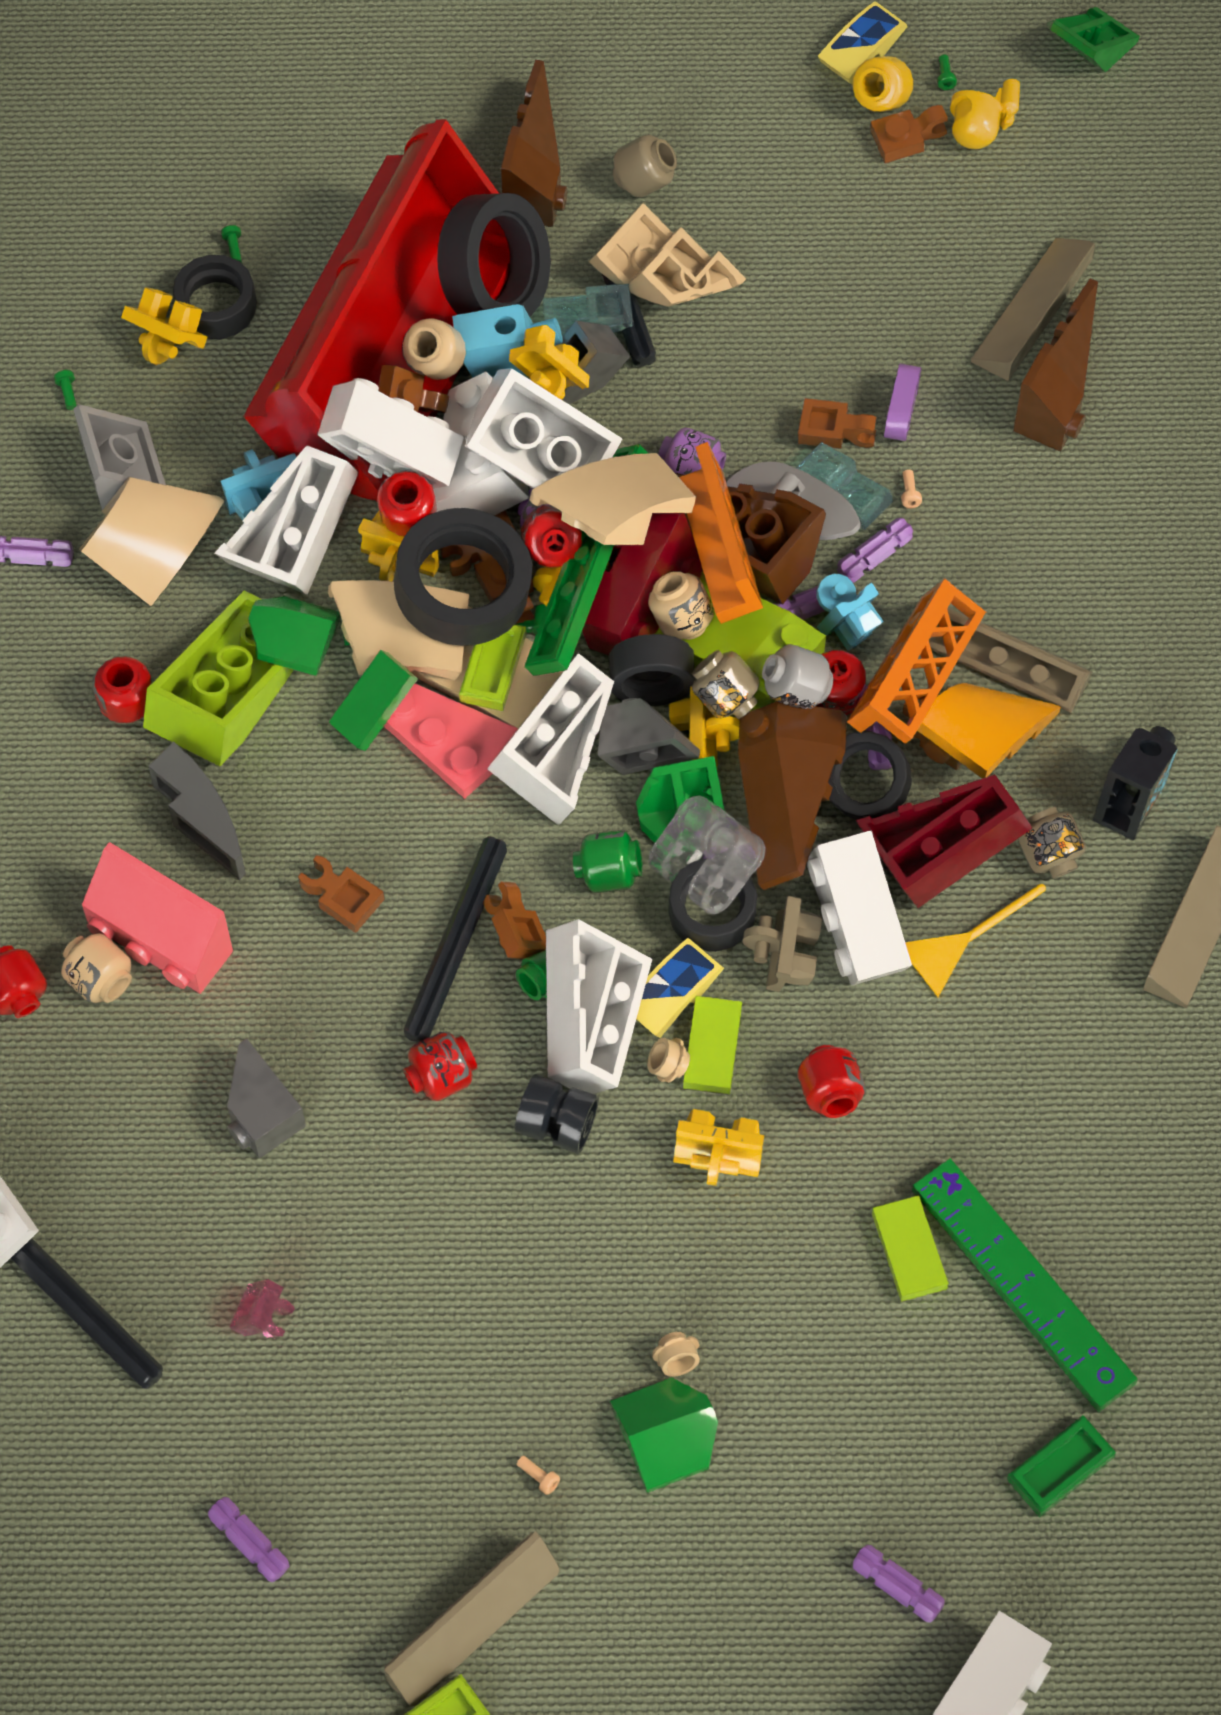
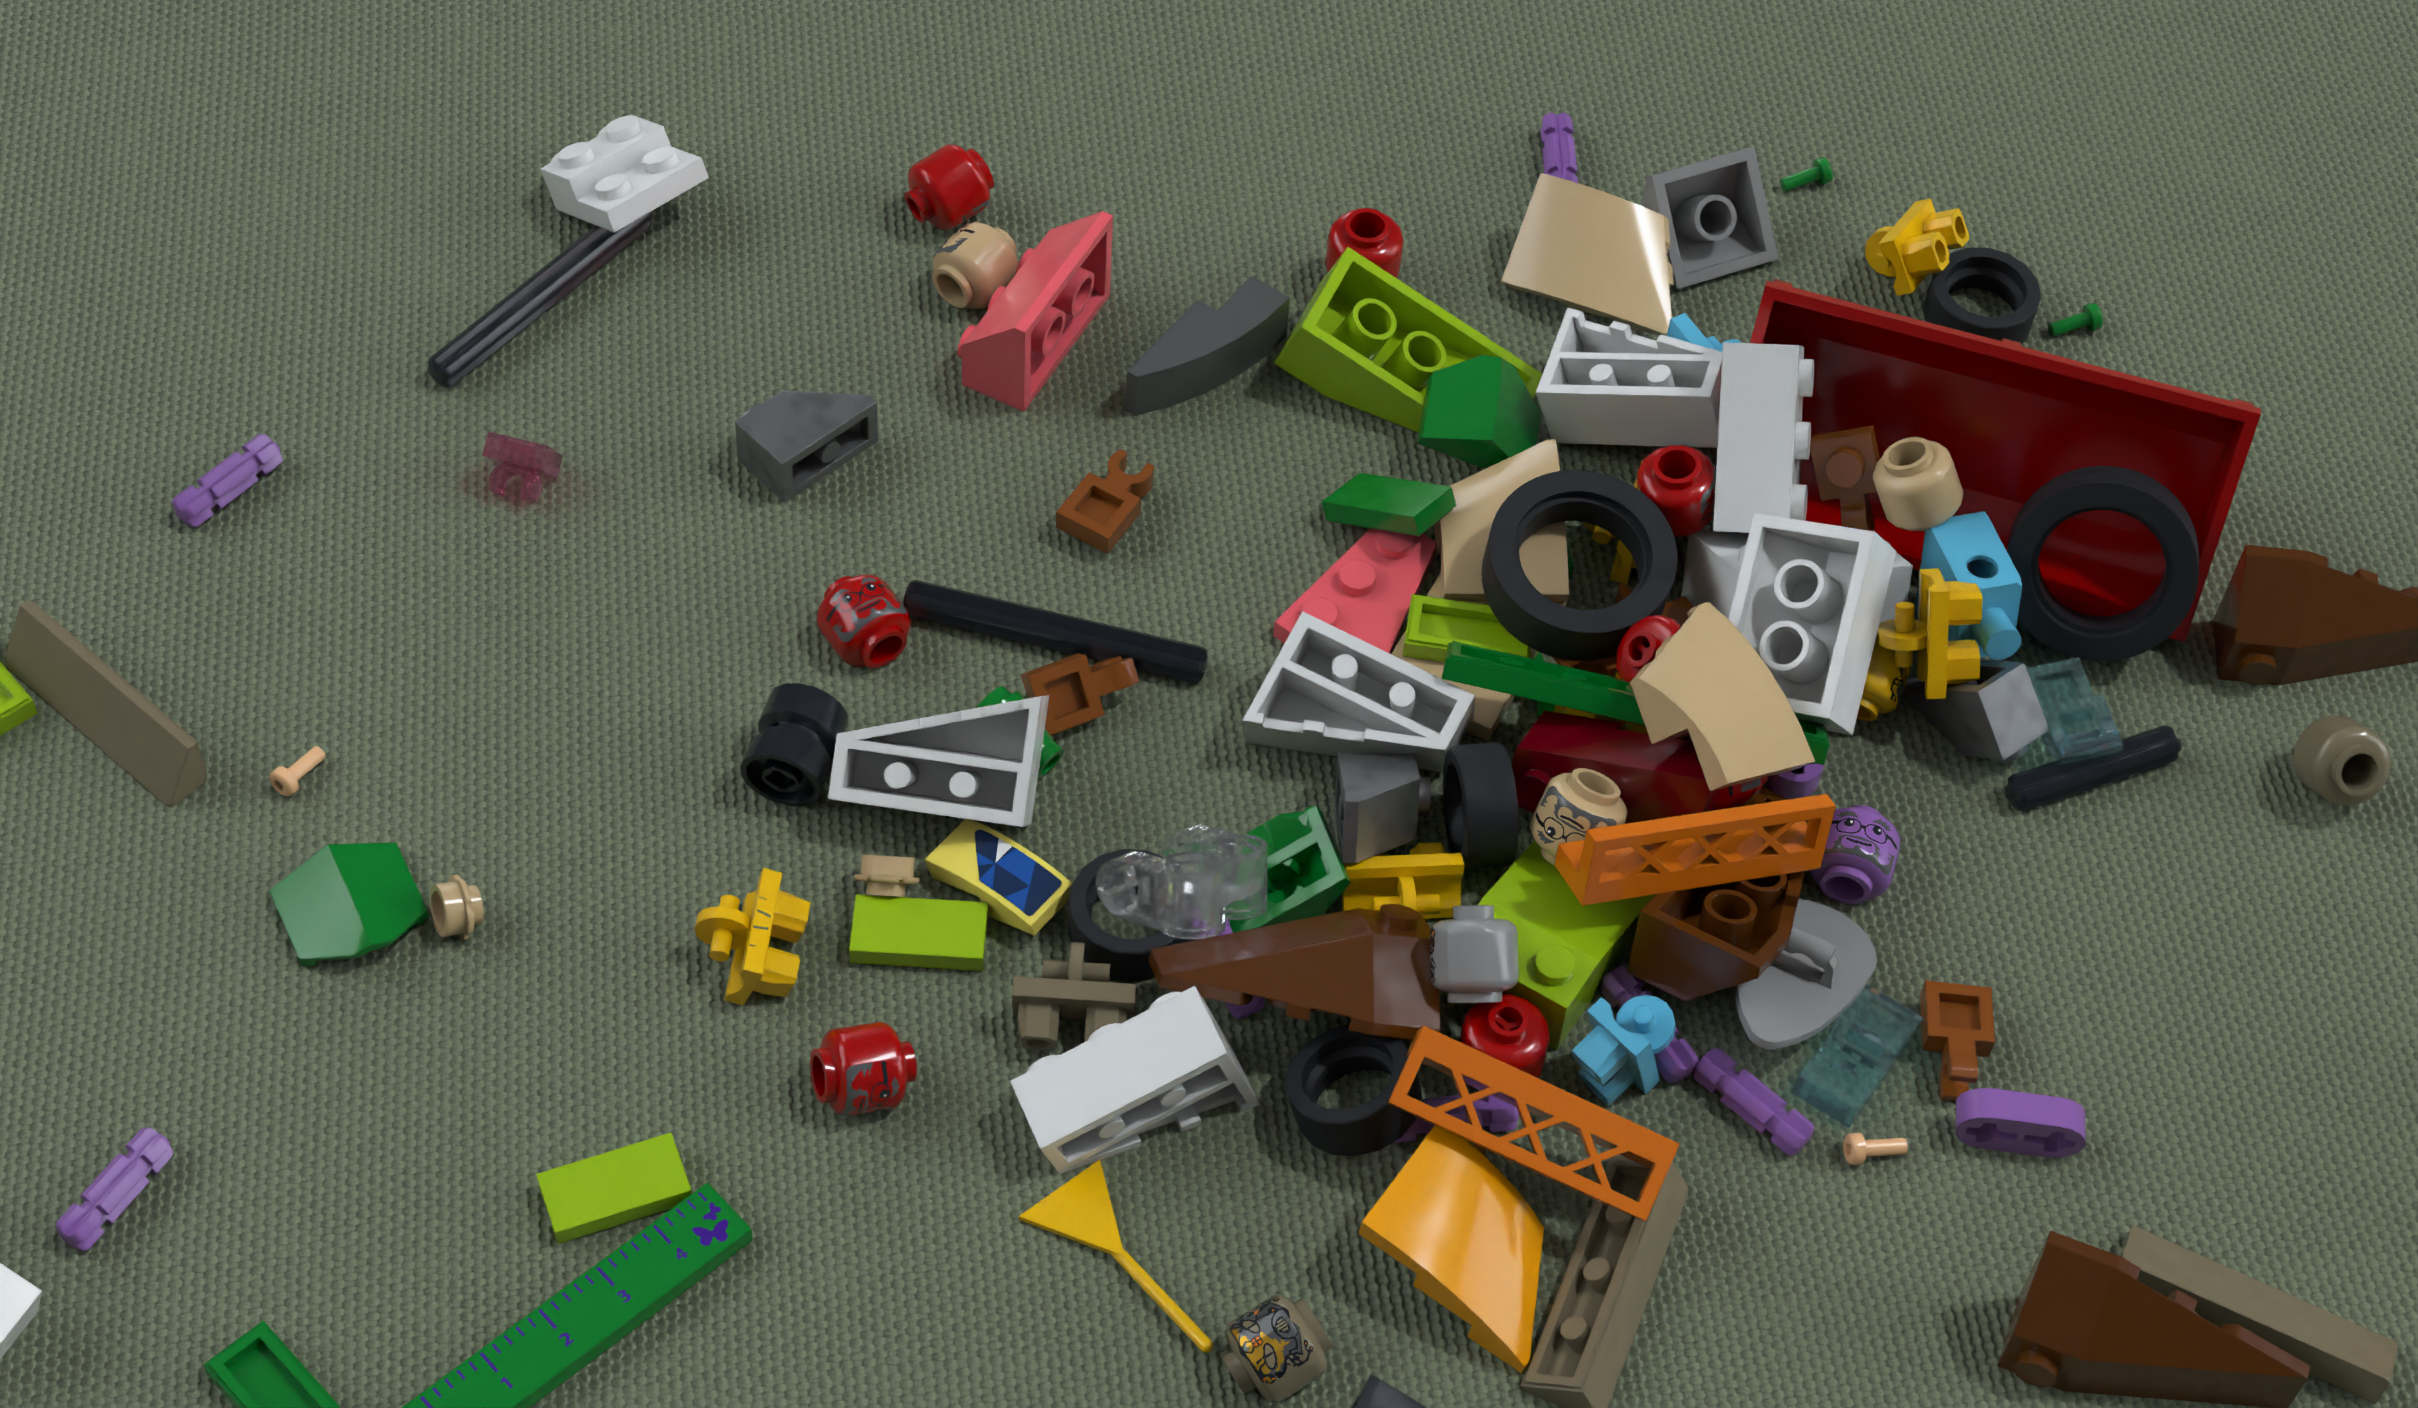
camera: 80 degrees right, 10 degrees down
(608, 861) = (1182, 784): green head -> none
(662, 264) = (2180, 794): tan slope -> none
(725, 684) = (1454, 871): dark tan head -> none
(946, 836) = (1249, 1180): dark red wedge -> none

